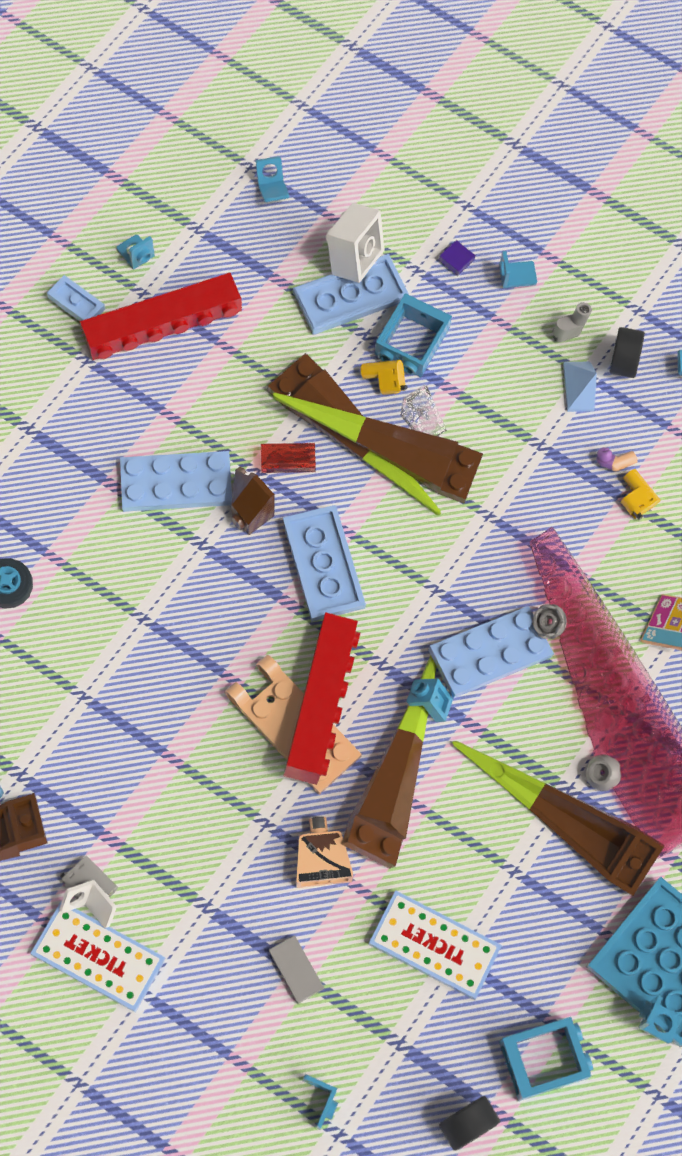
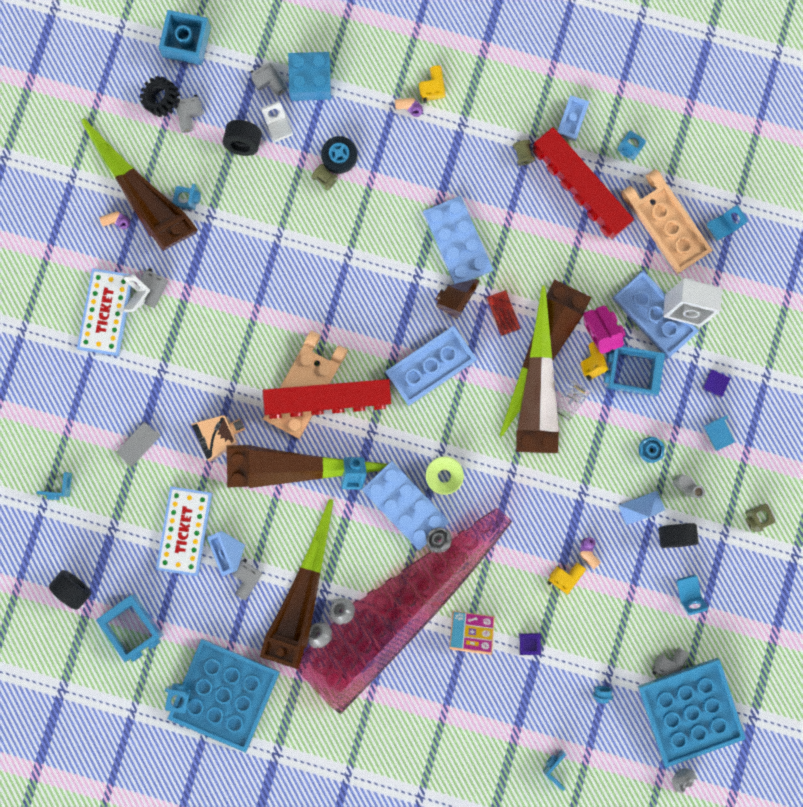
camera: 75 degrees right, 15 degrees up
(29, 610) = (324, 177): none -> olive bush
(96, 368) = (523, 152): none -> olive bush
(246, 243) = (668, 223): none -> light nougat hinge
(351, 348) = (604, 329): none -> dark pink brick
(469, 578) = (452, 467): none -> yellowish green piece
(481, 898) = (226, 552): none -> light blue slope
(516, 343) = (657, 446): none -> dark azure plate
(523, 877) = (249, 576): none -> light grey piece
(631, 269) = (753, 520): none -> olive bracket
(631, 803) = (324, 633): none -> light grey plate

